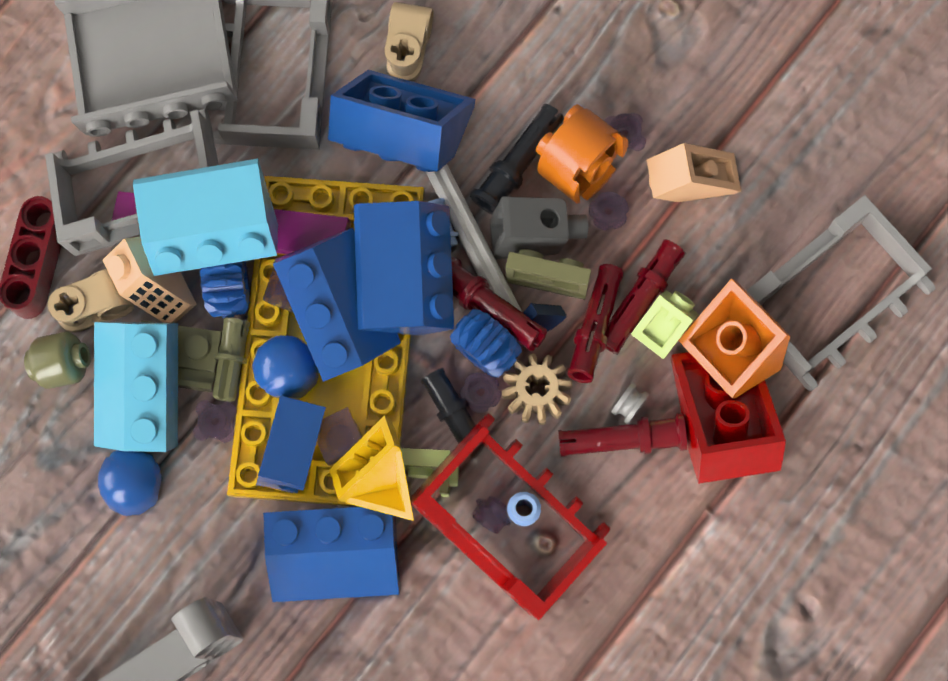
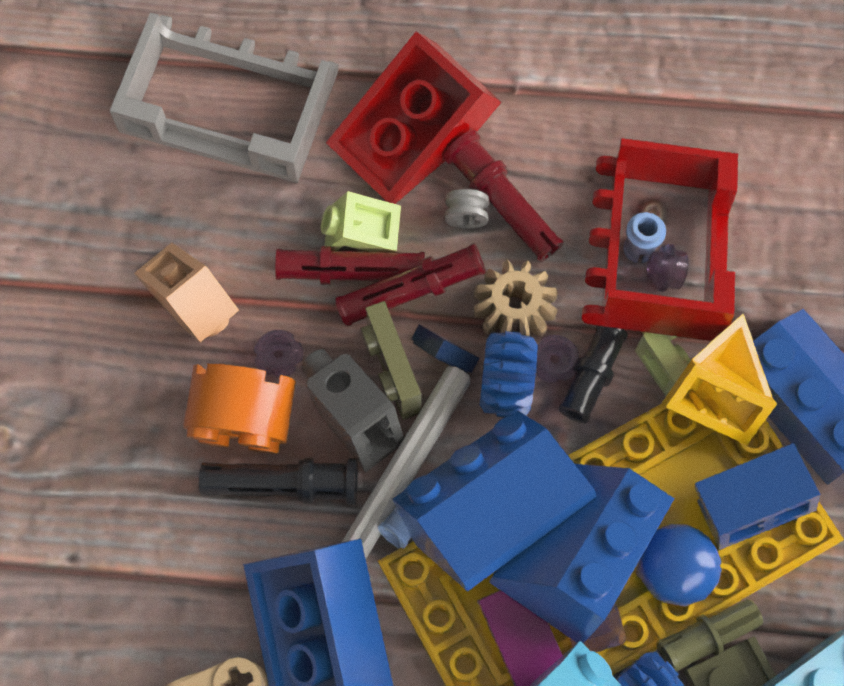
camera: 130 degrees left, 5 degrees down
(223, 430) = (797, 612): clear purple plate -> none
(338, 435) = (707, 454): plate -> none
(475, 294) = (462, 423): dark red pin -> none
(632, 124) = (165, 390): plate -> none
(736, 340) = (341, 139): orange slope -> none

